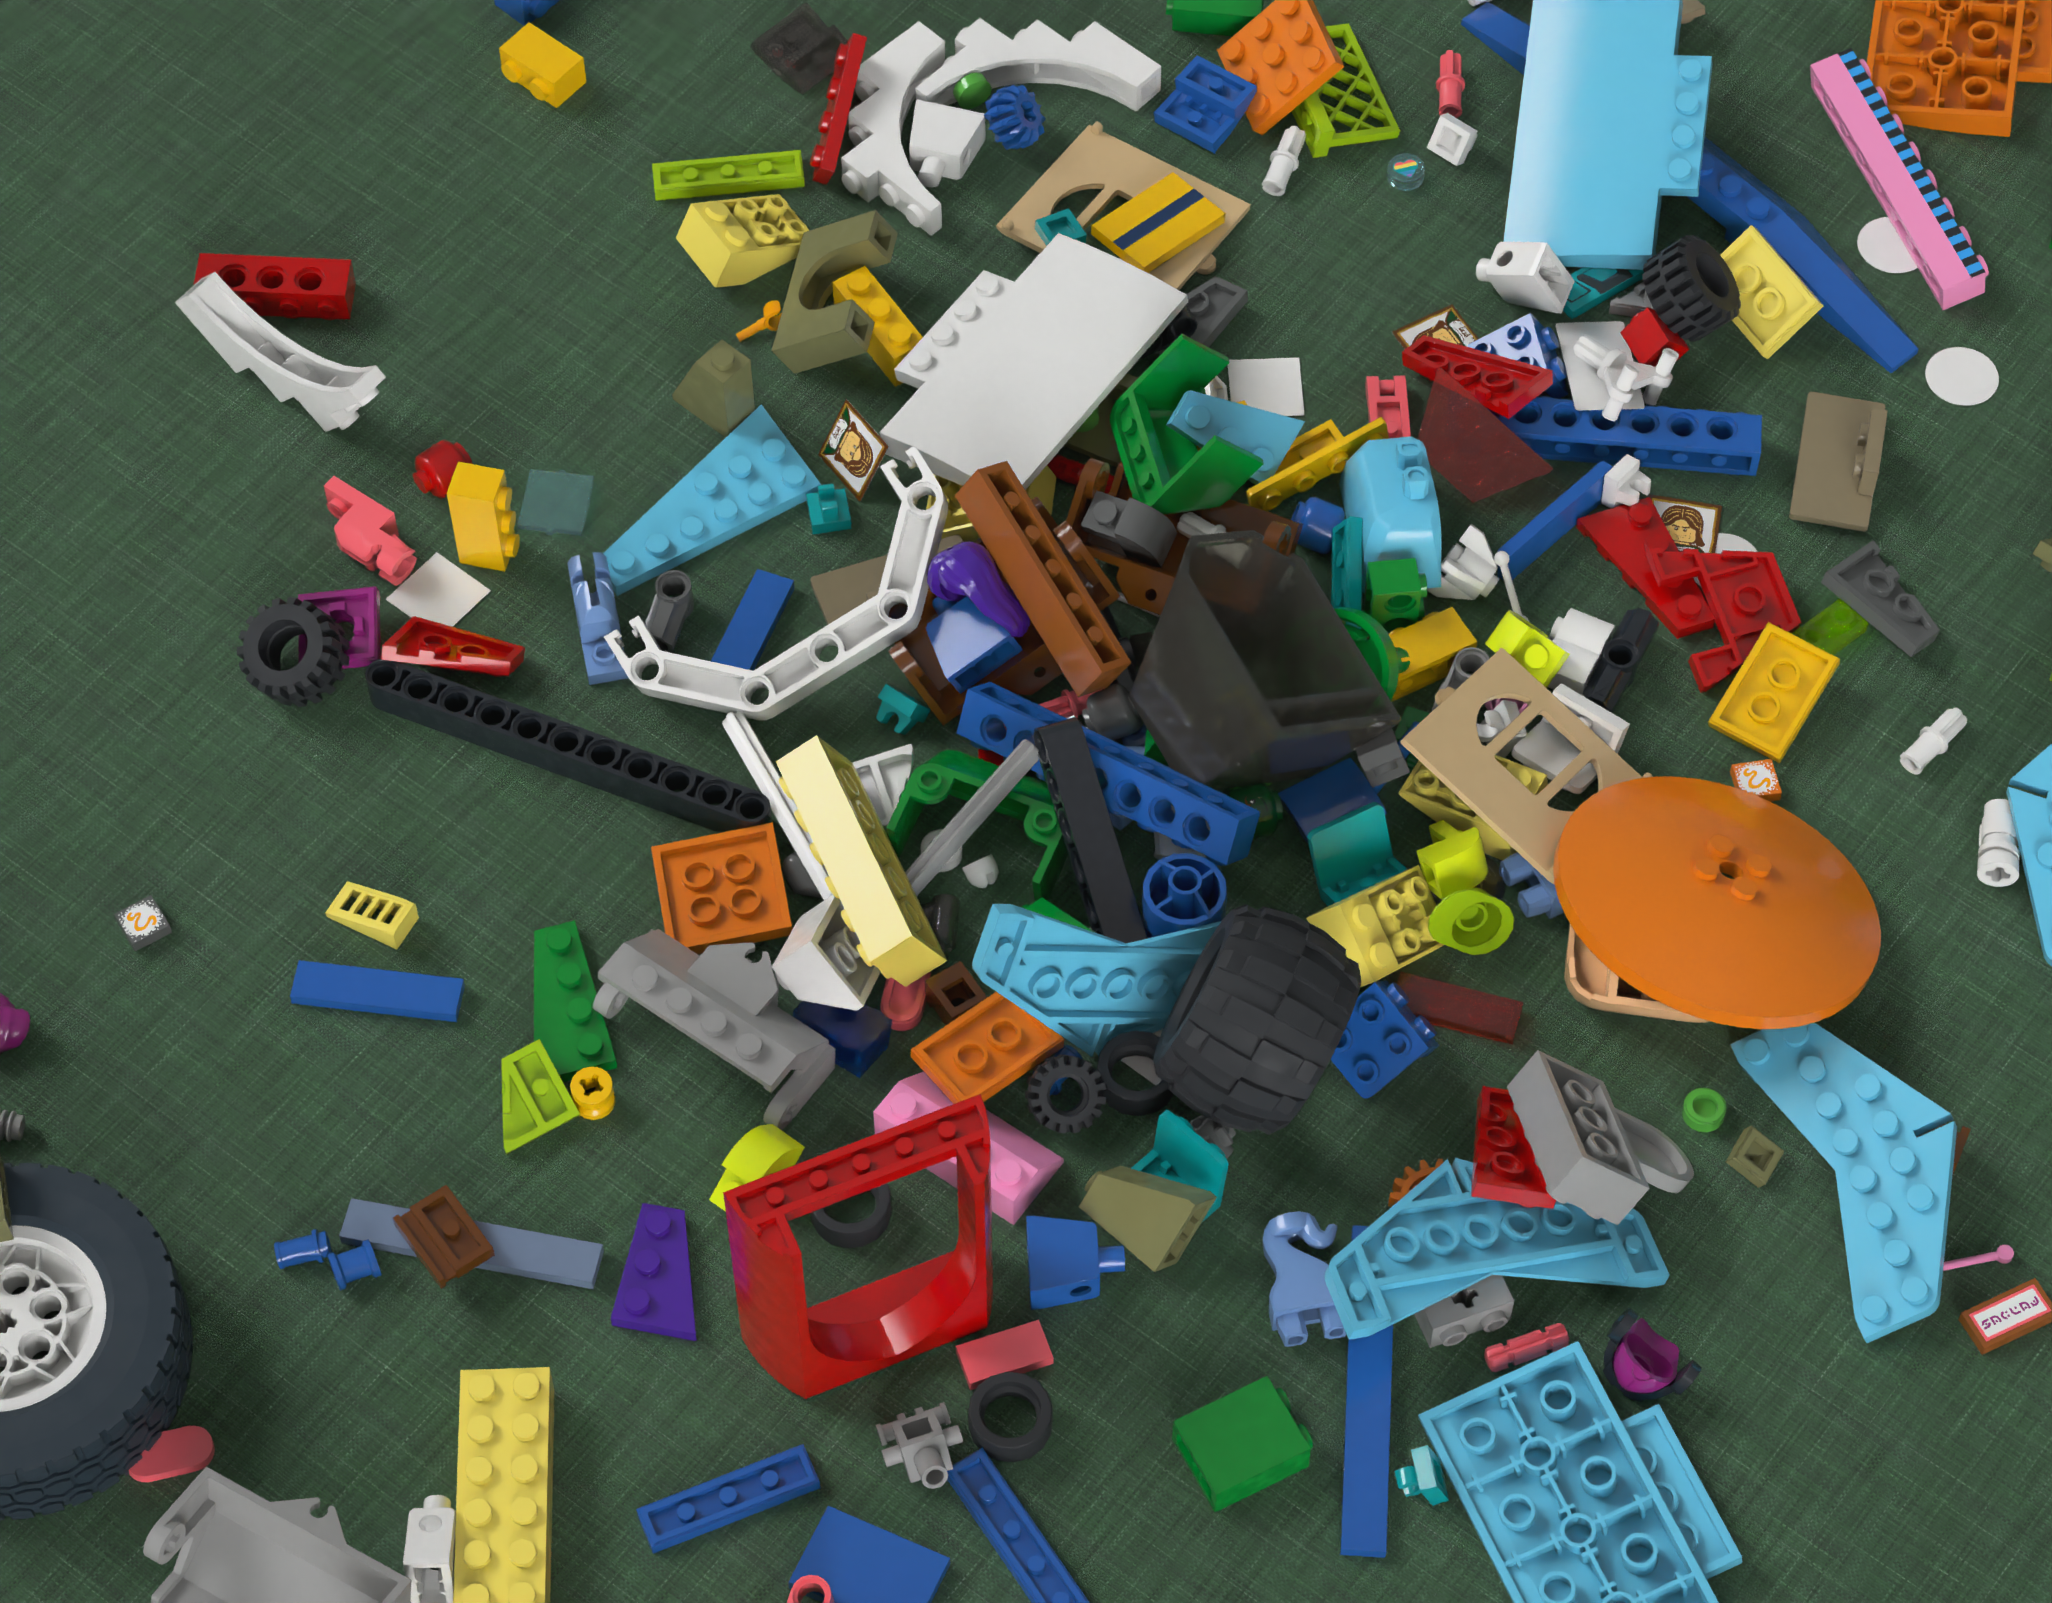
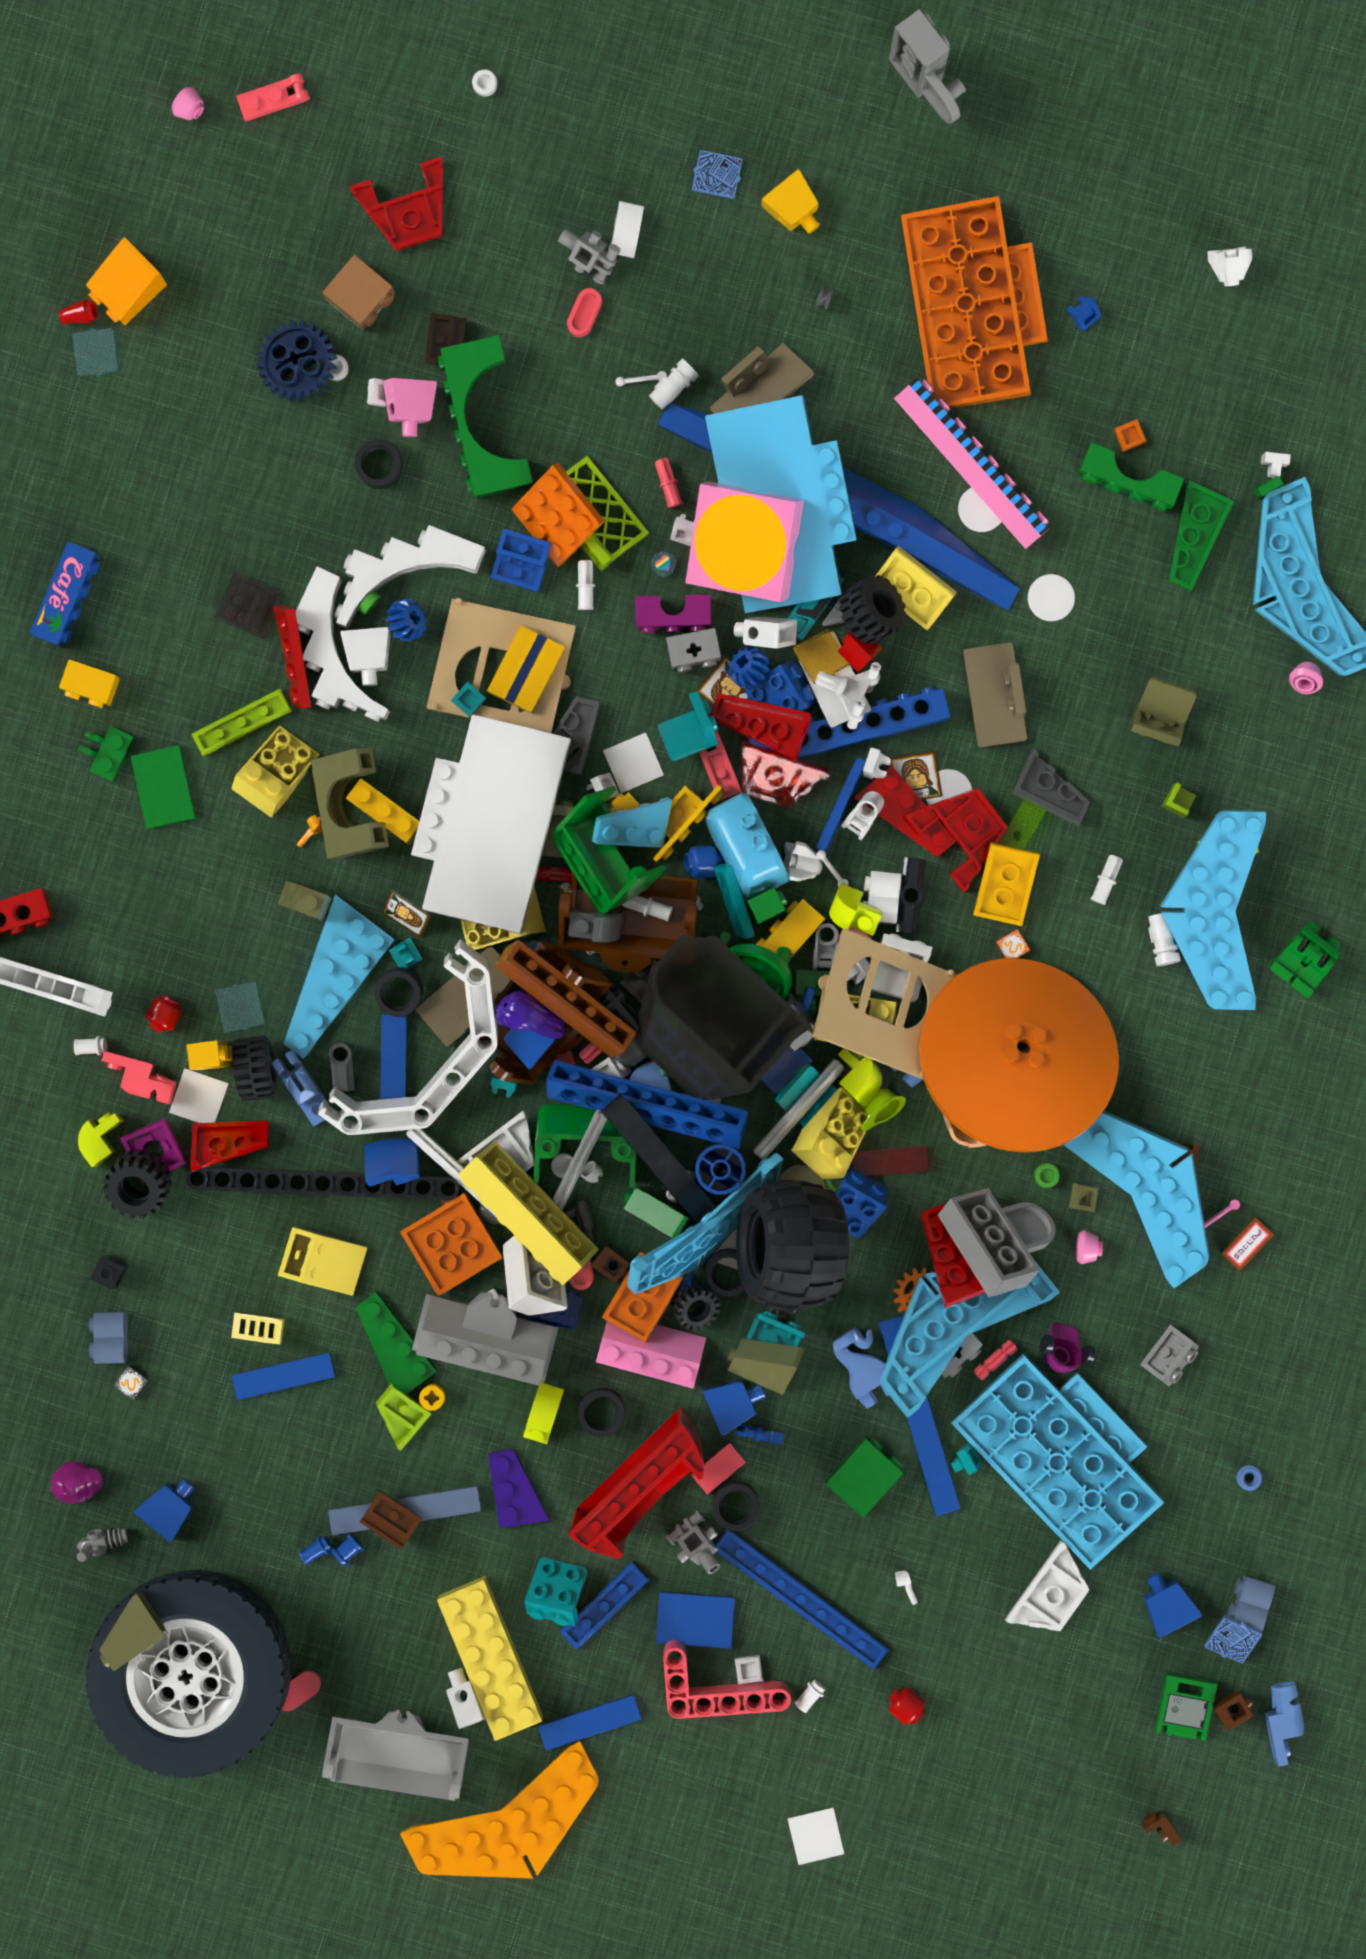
camera: 20 degrees left, 30 degrees up
(105, 1108) = (168, 1509): none -> blue torso
(144, 847) = (109, 1337): none -> sand blue brick
(190, 760) = (109, 1272): none -> black brick
(262, 582) = (93, 1141): none -> neon yellow brick
(313, 475) = (90, 1046): none -> white pin
(512, 845) = (322, 1261): none -> light yellow slope
(529, 156) = (111, 753): none -> green hinge
(537, 557) = (253, 1068): none -> black tyre
(581, 213) = (163, 787): none -> green tile
(650, 1439) = (555, 1591): none -> teal bracket
(691, 745) = (391, 1160): none -> blue slope
(782, 520) = (411, 977): none -> black tyre
(1110, 1334) = (760, 1434): none -> blue piece
(1348, 873) = (798, 1109): none -> white axle
(1376, 365) = (690, 731): none -> teal bracket
(1409, 273) = (680, 645): none -> light grey brick
(1421, 237) = (694, 616): none -> magenta arch
(1482, 311) = (749, 667): none -> blue gear
(1534, 150) = (744, 541): none -> yellow tile
(1581, 539) = (862, 816): none -> white piece
(1602, 328) = (820, 654): none -> clear yellow piece
(1738, 1226) = (1088, 1247): none -> bright pink cone
(1827, 1437) = (1170, 1356): none -> light grey bracket

